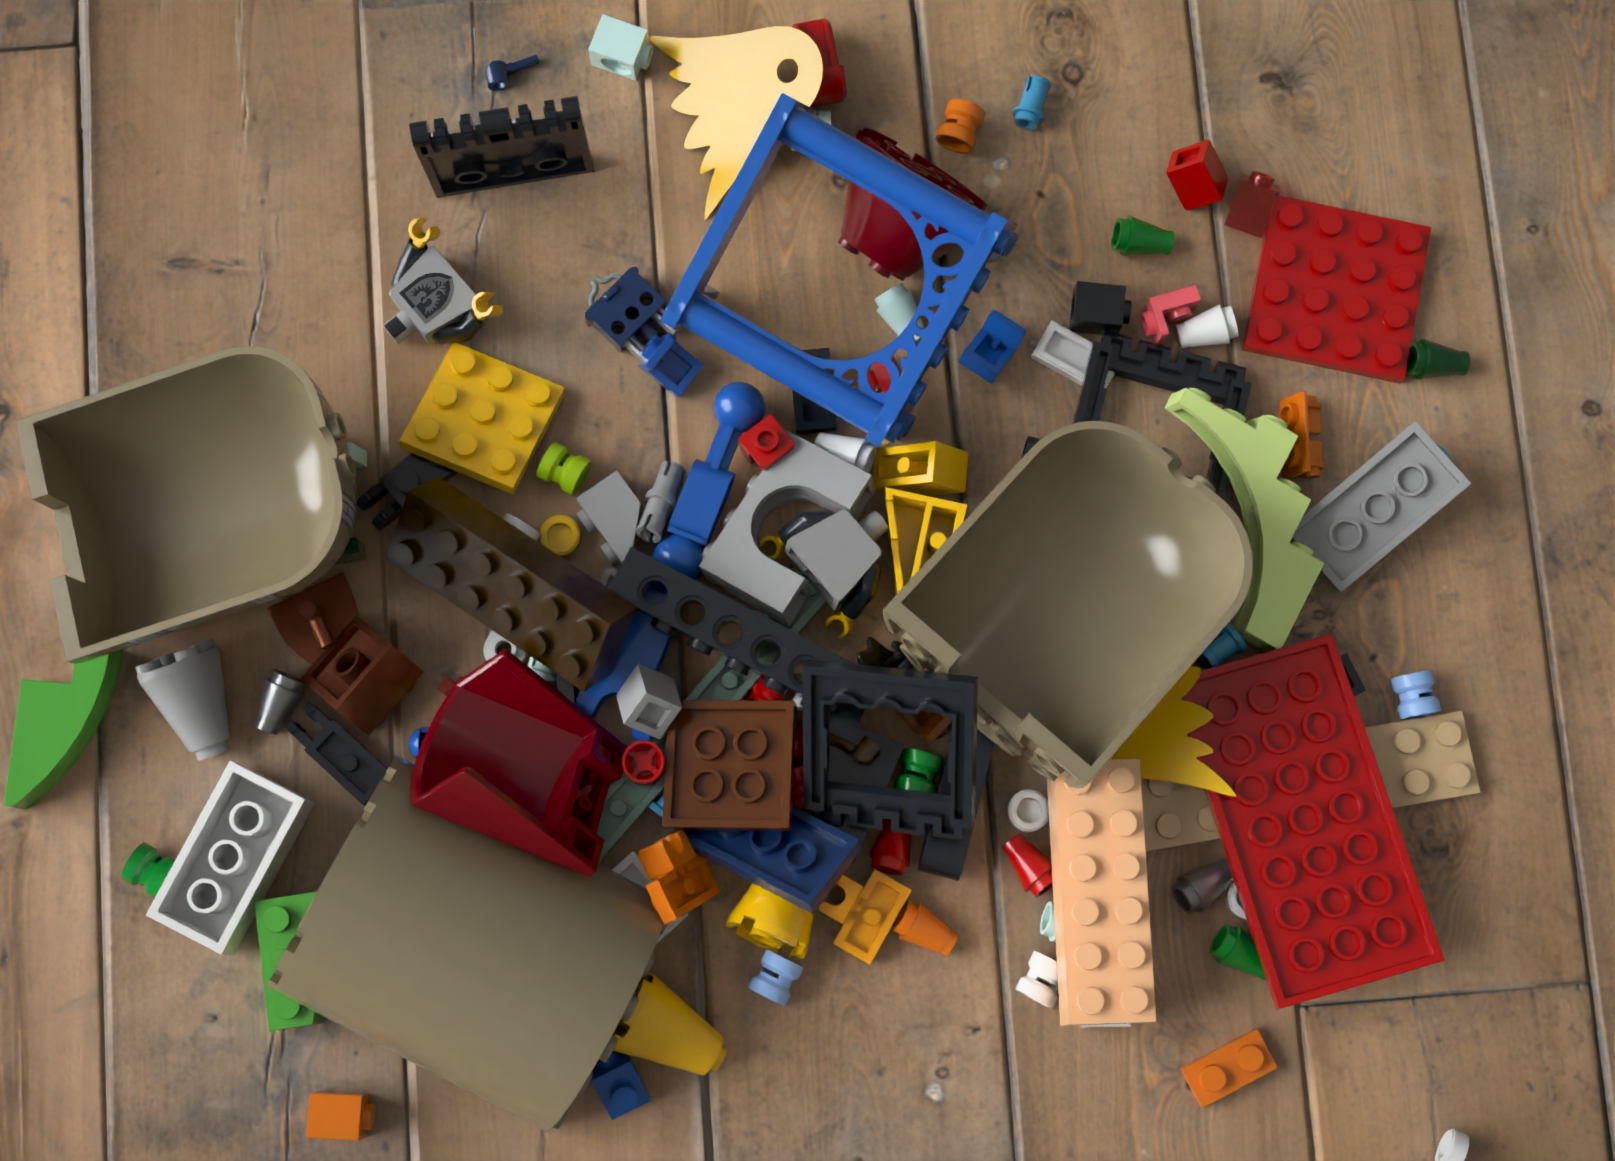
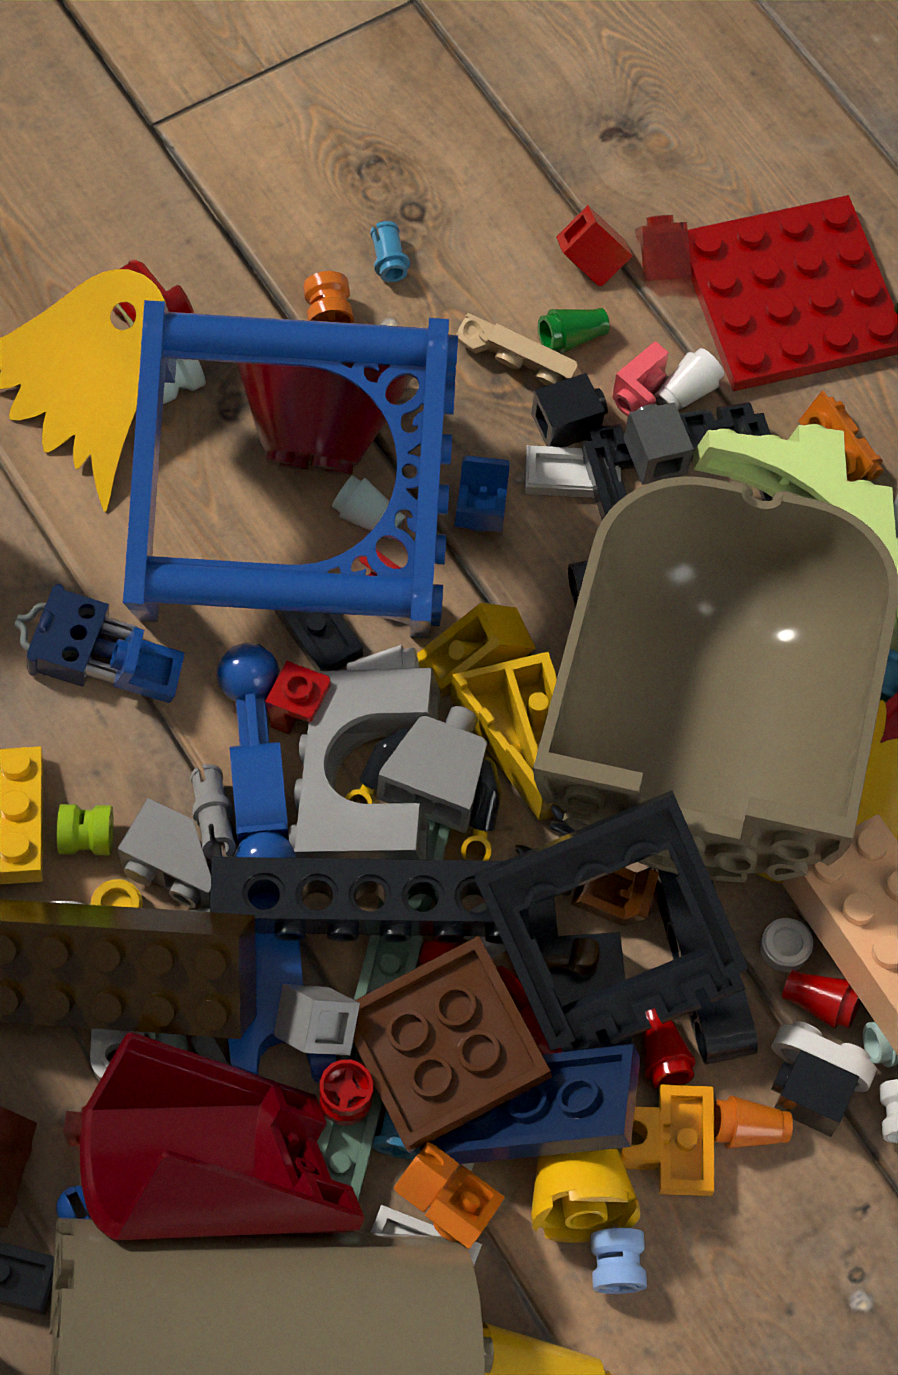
camera: 30 degrees left, 15 degrees down
(920, 764) = (646, 949): green wheel -> none
(982, 930) = (814, 1091): none -> black brick
(1017, 923) = (805, 1037): none -> white plate
(1084, 237) = (516, 350): none -> tan hinge
(1148, 372) = (658, 442): none -> dark grey brick

